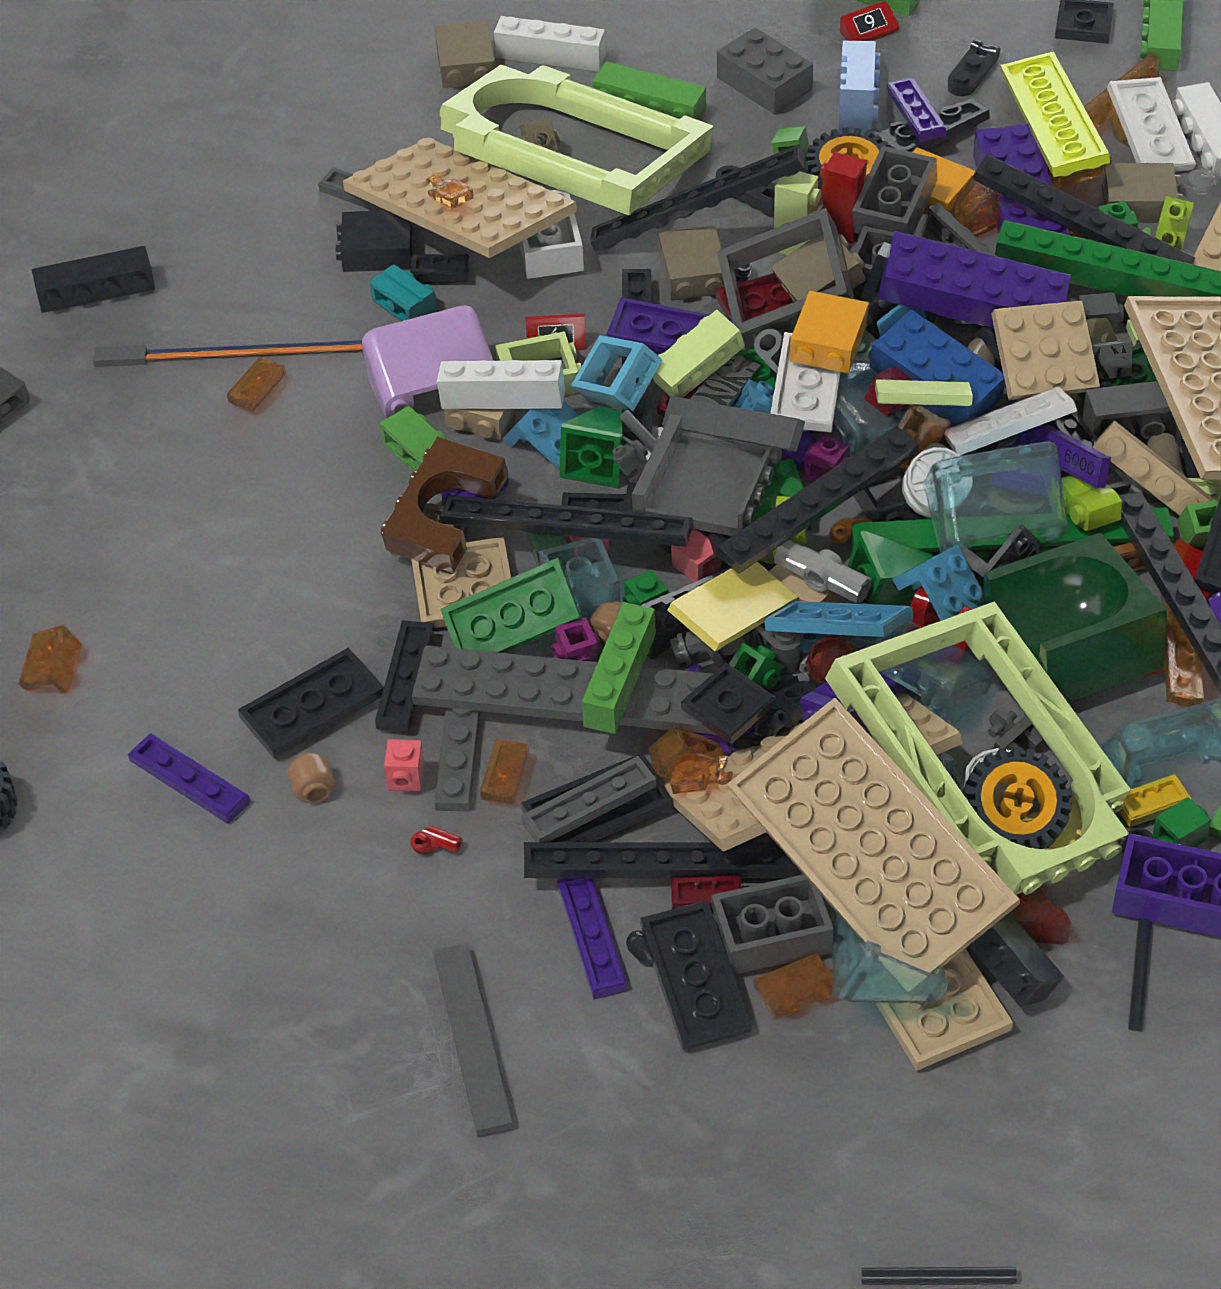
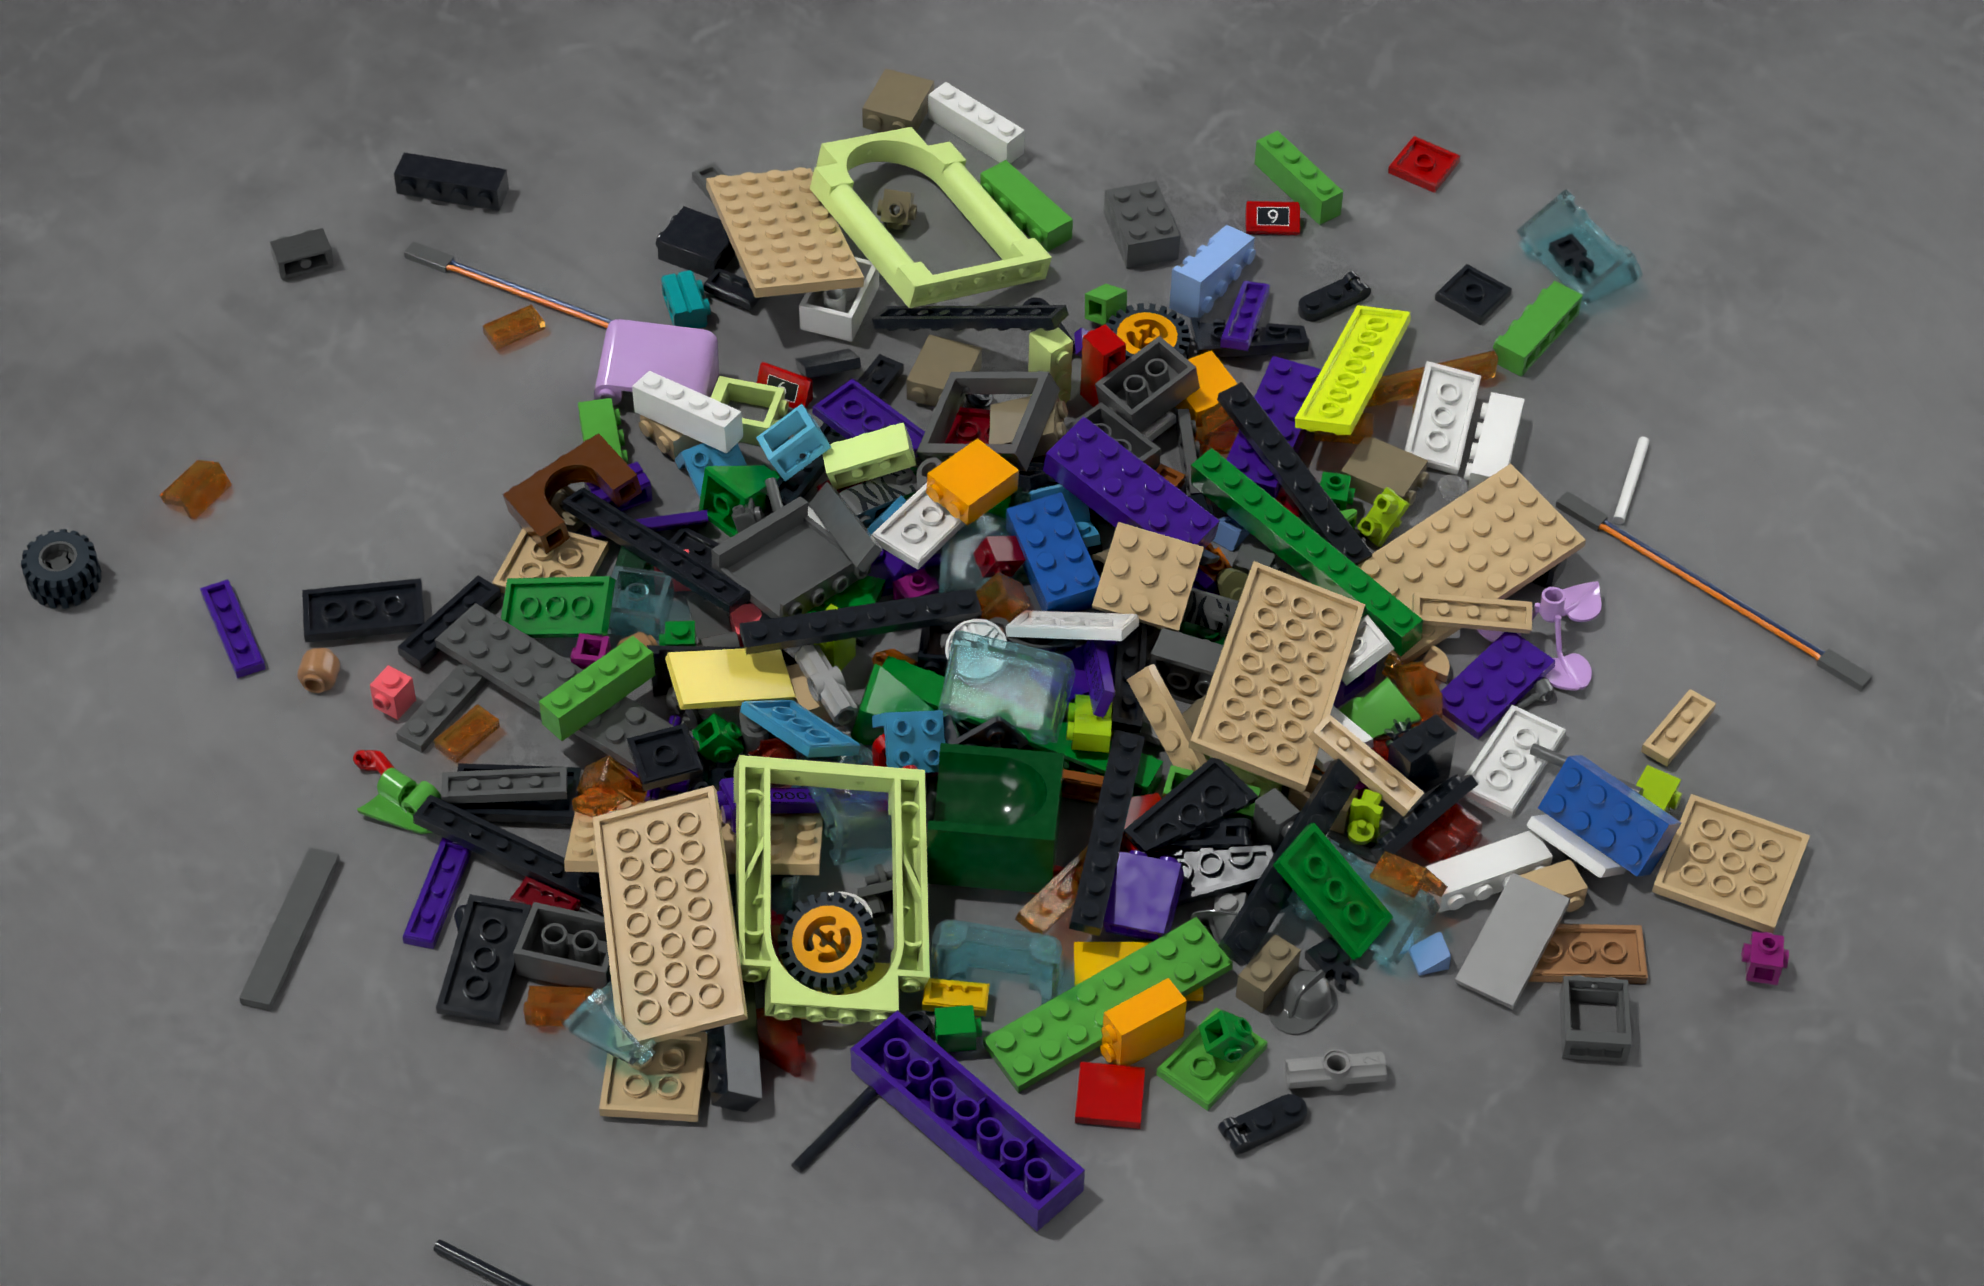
camera: 25 degrees right, 0 degrees up
(449, 193) = (764, 226): clear orange plate -> none
(491, 864) = (399, 800): none -> bright green panel
(543, 497) = (667, 522): none -> dark purple tile
(583, 295) = (828, 363): none -> black tile
(652, 557) = (711, 623): none -> dark grey door
(923, 392) = (1010, 568): yellowish green tile -> none

